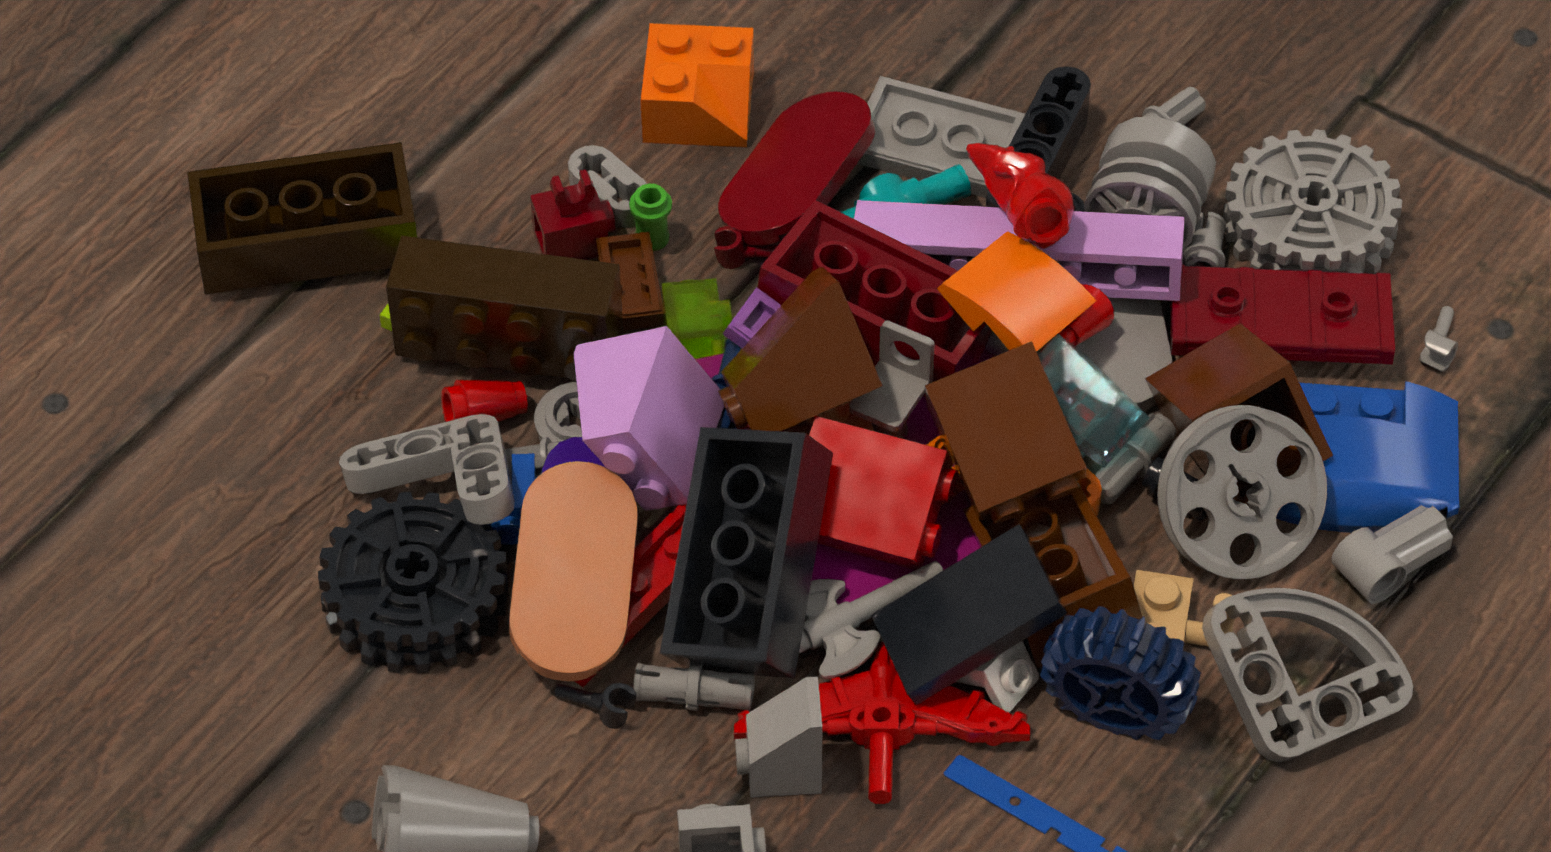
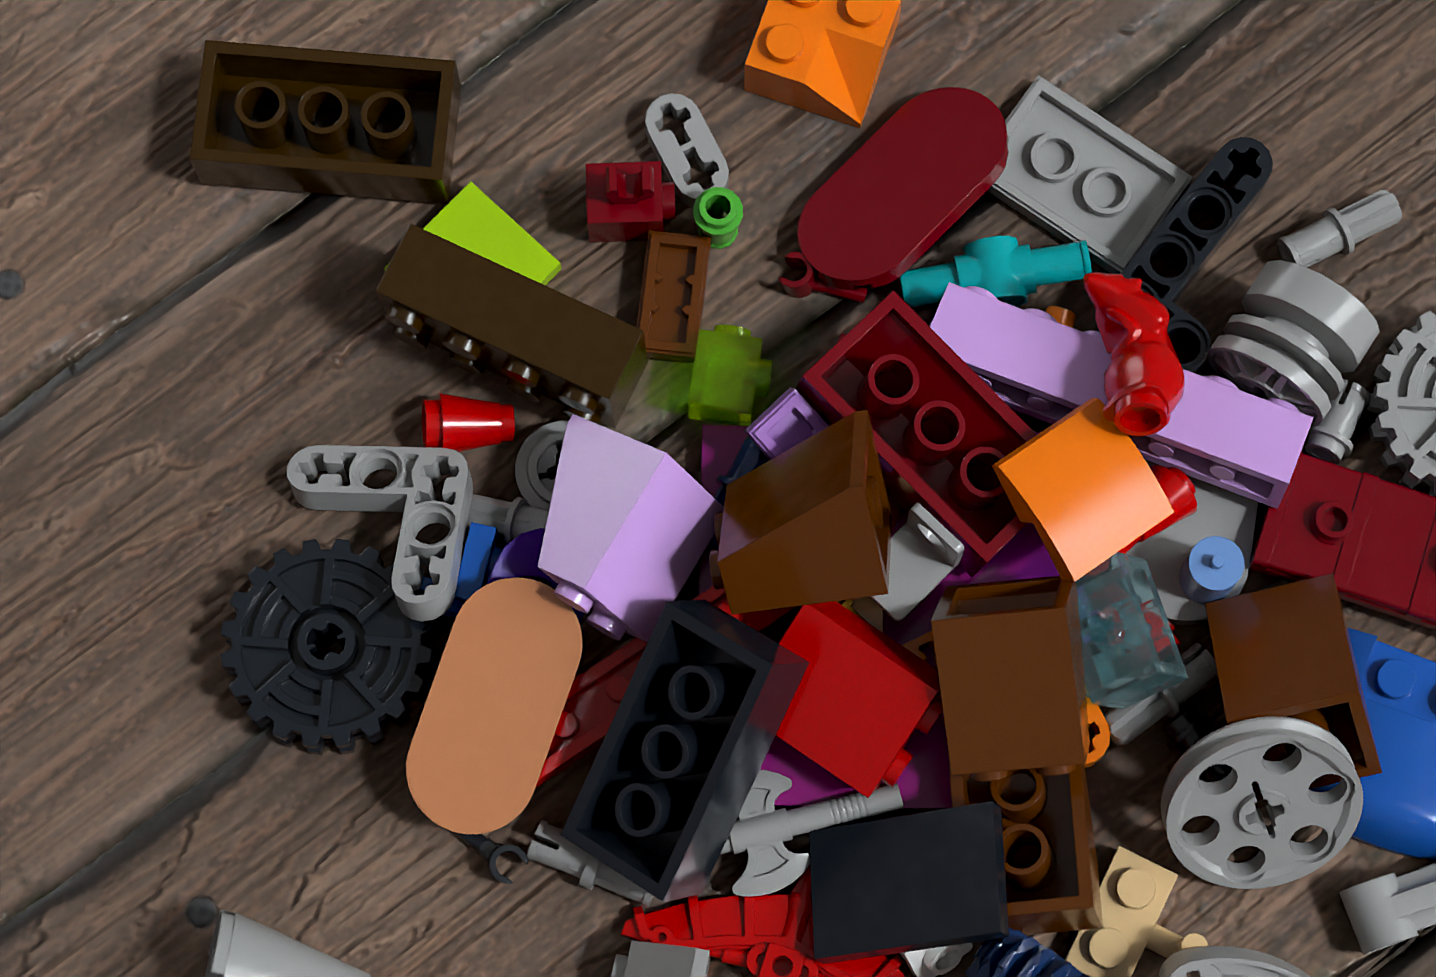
camera: 15 degrees right, 25 degrees up
(1140, 349) = (1211, 569): none -> medium blue piece

